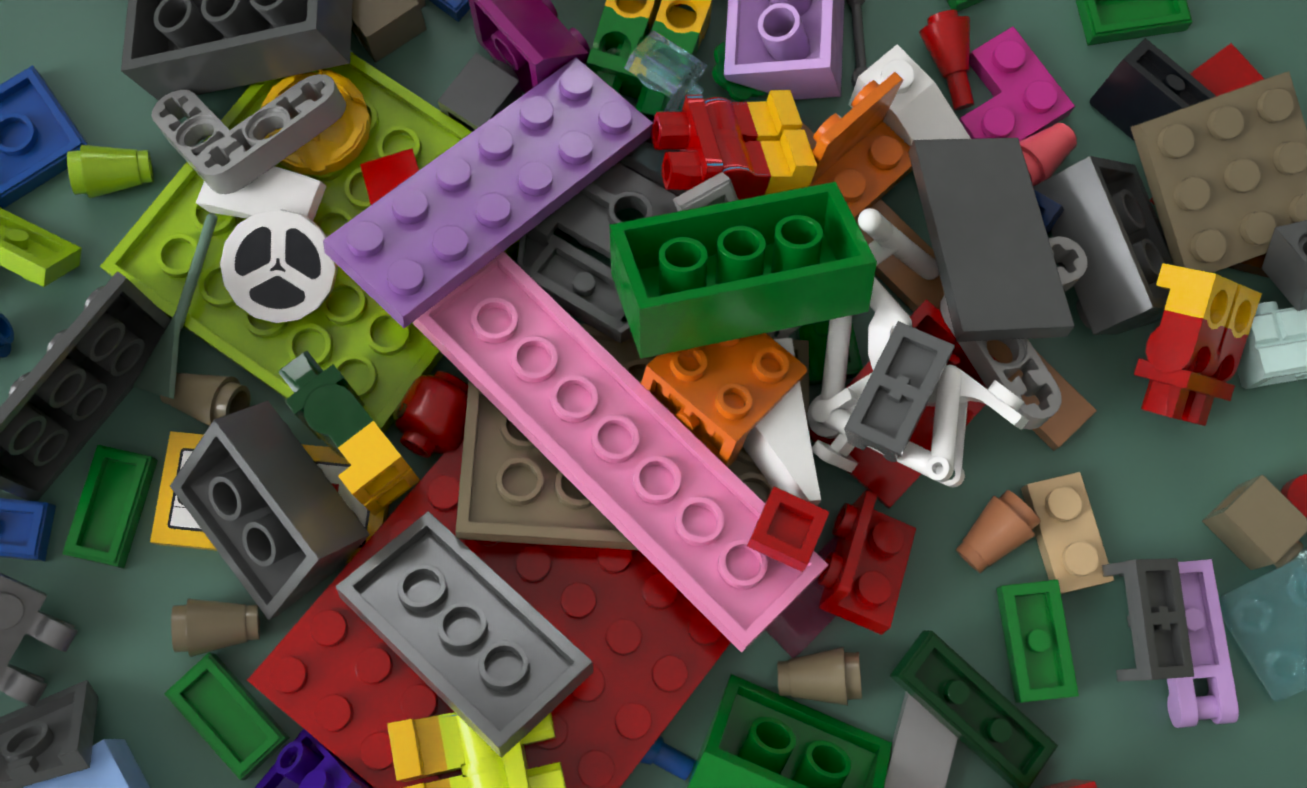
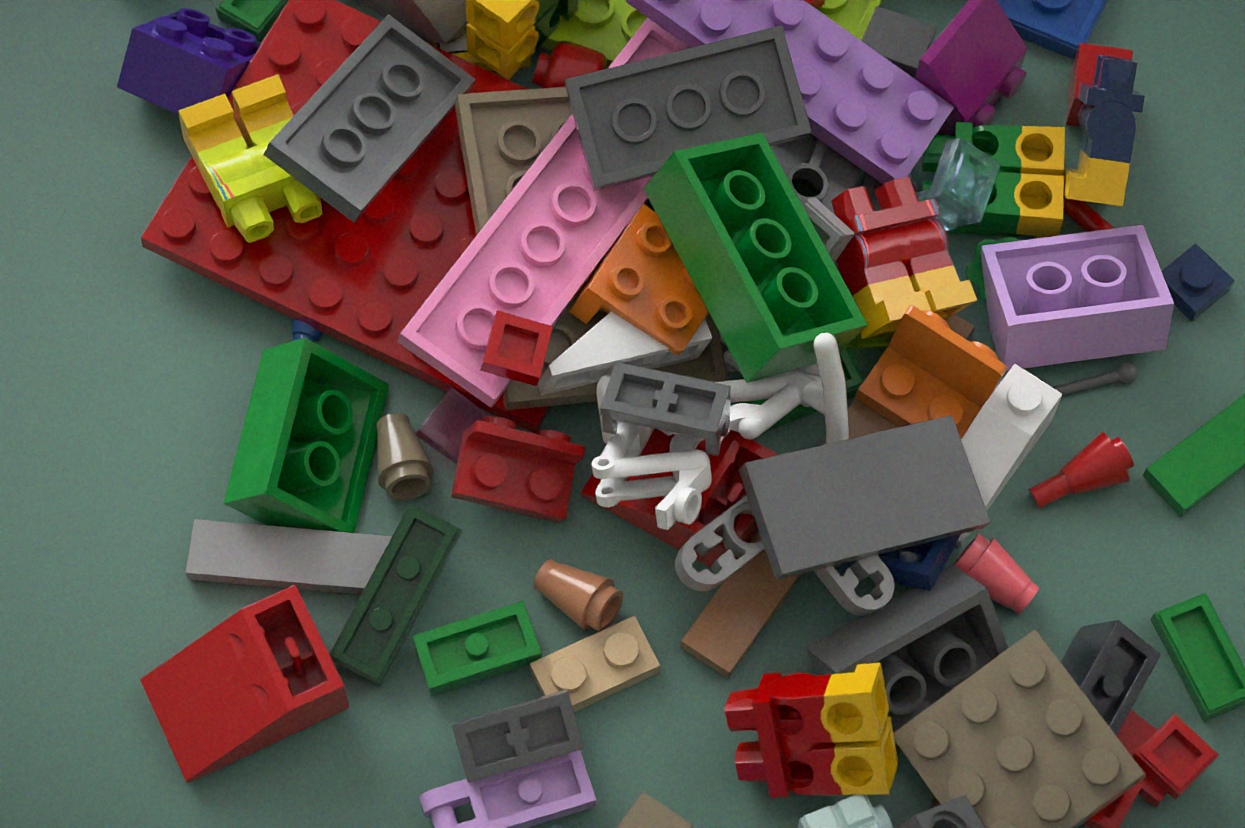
camera: 80 degrees right, 10 degrees down
(550, 295) = (685, 99): none -> dark grey plate
(1022, 88) = (1064, 557): dark pink plate -> none
(1234, 55) = (1175, 756): none -> red tile

